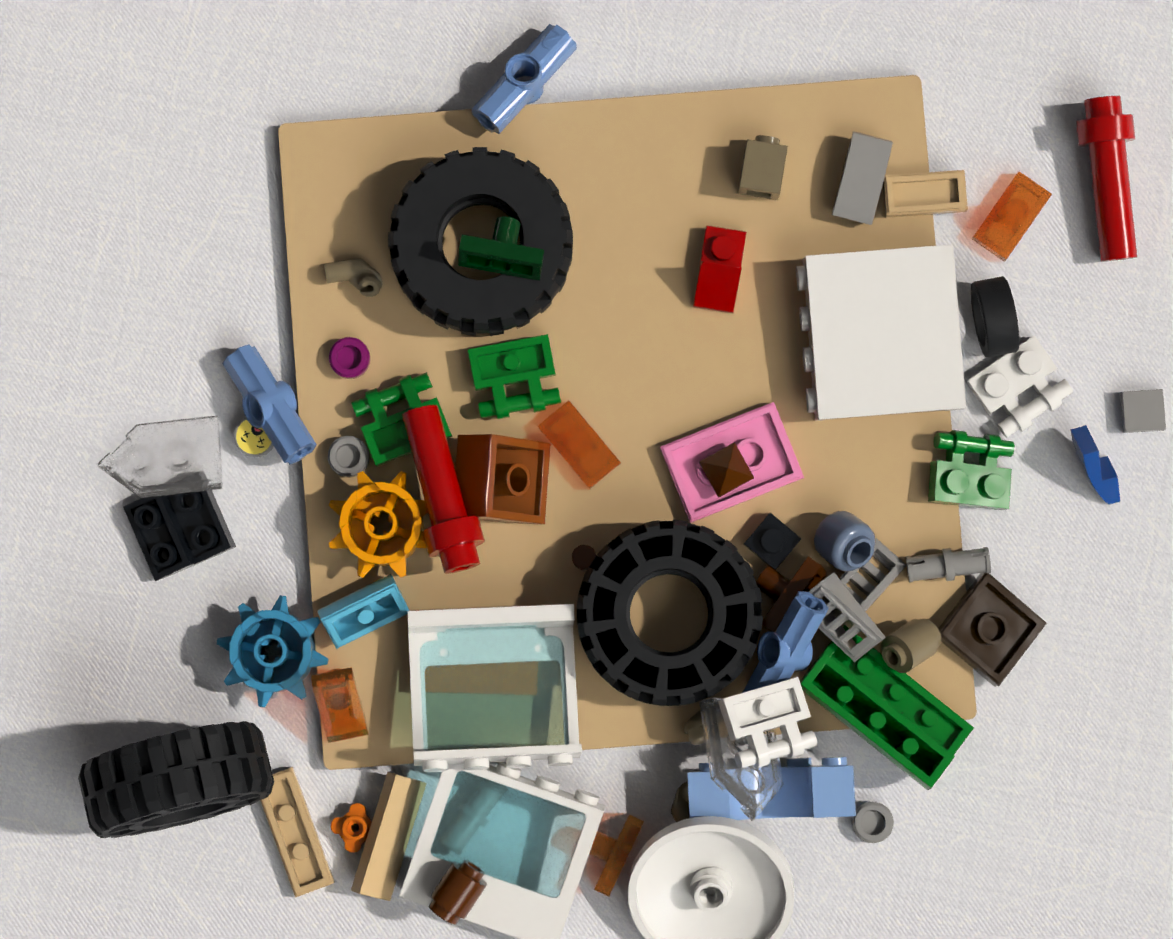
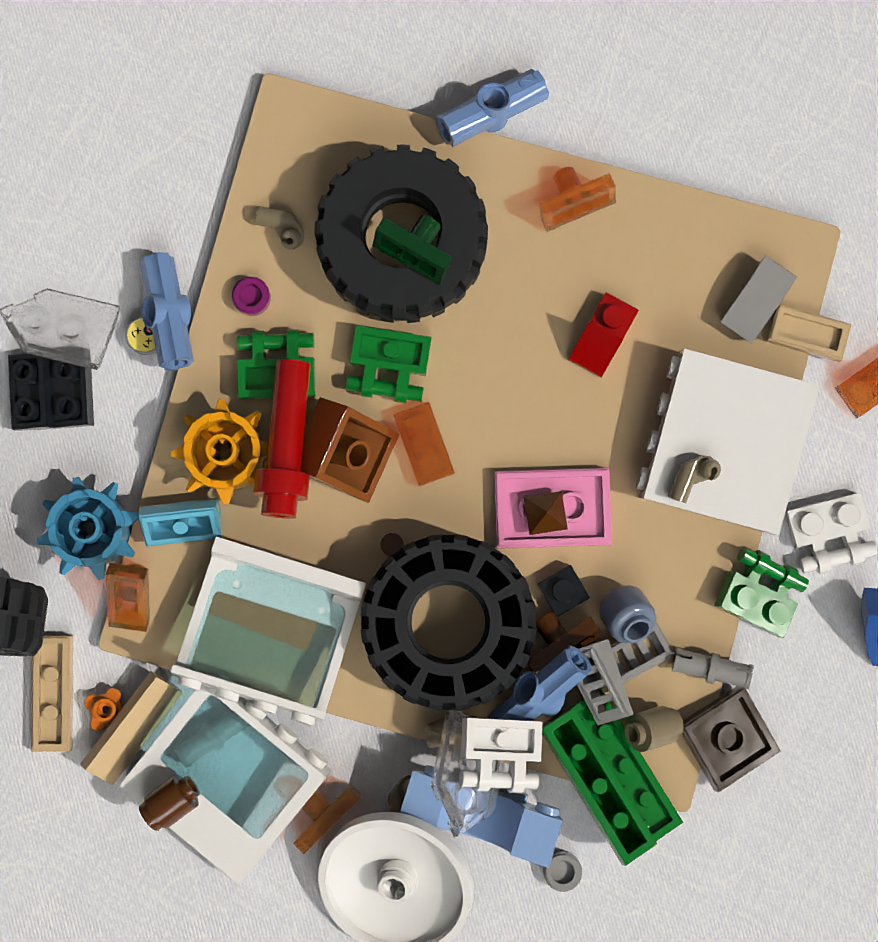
camera: 25 degrees right, 0 degrees up
(348, 456) = (218, 381): light grey tile -> none
(642, 142) = (576, 198): none -> clear orange tile
(763, 167) = (674, 259): dark tan brick -> none
(857, 377) = (691, 473): none -> dark tan arm
(994, 316) = (833, 463): black tyre -> none

